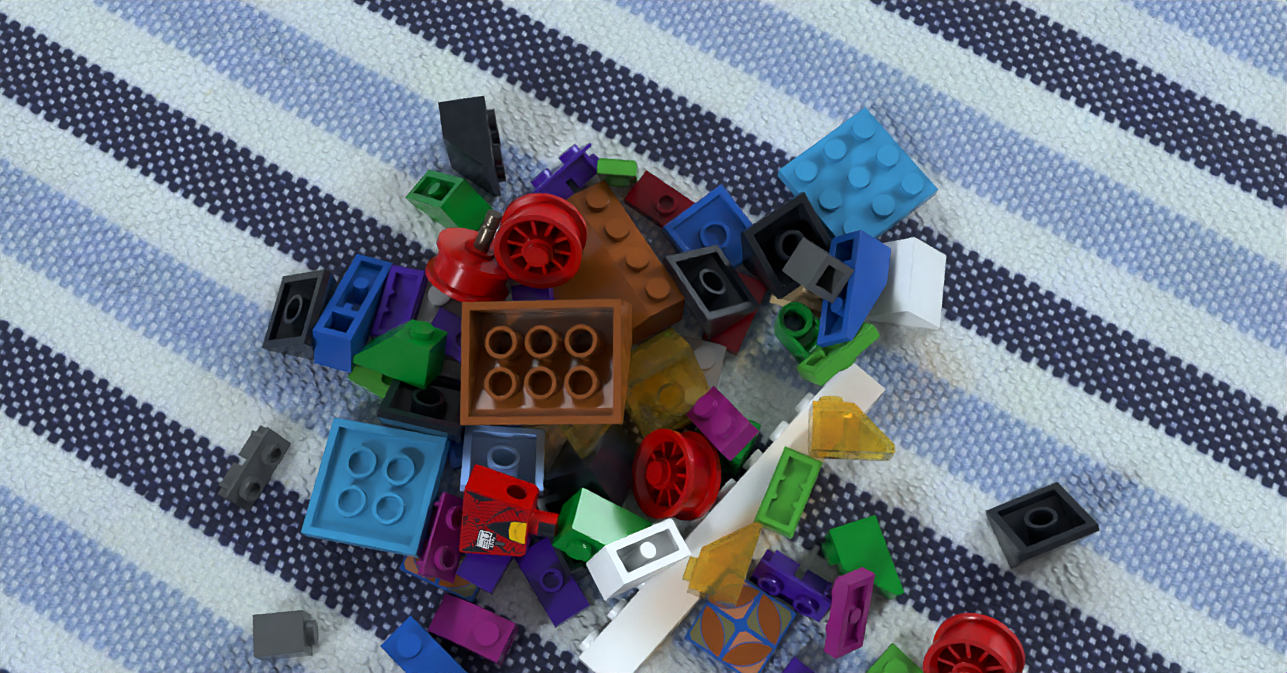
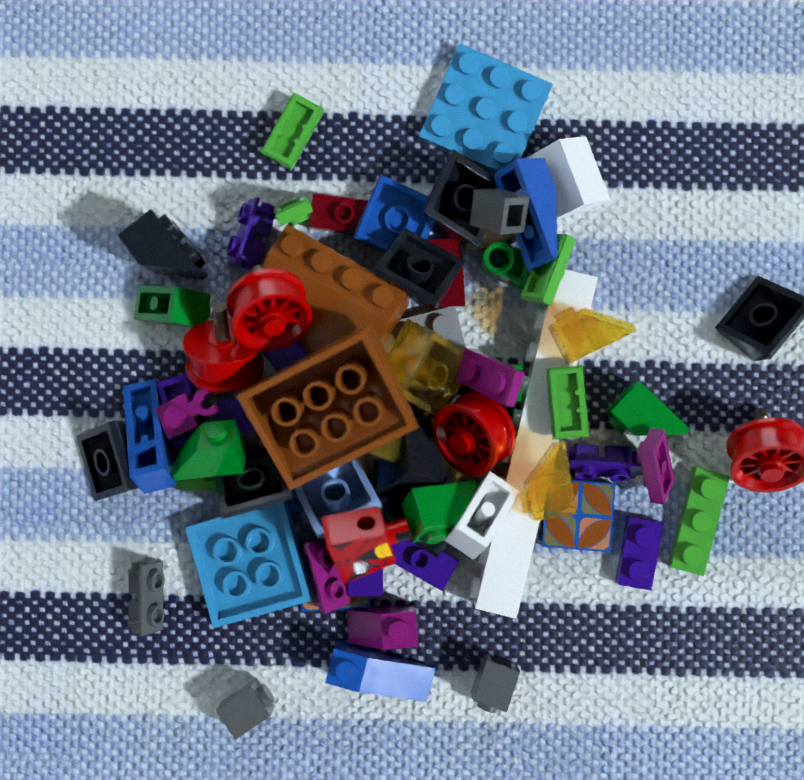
camera: 30 degrees left, 15 degrees up
(400, 302) = (183, 413): none -> magenta plate
(658, 105) = (292, 131): none -> bright green plate

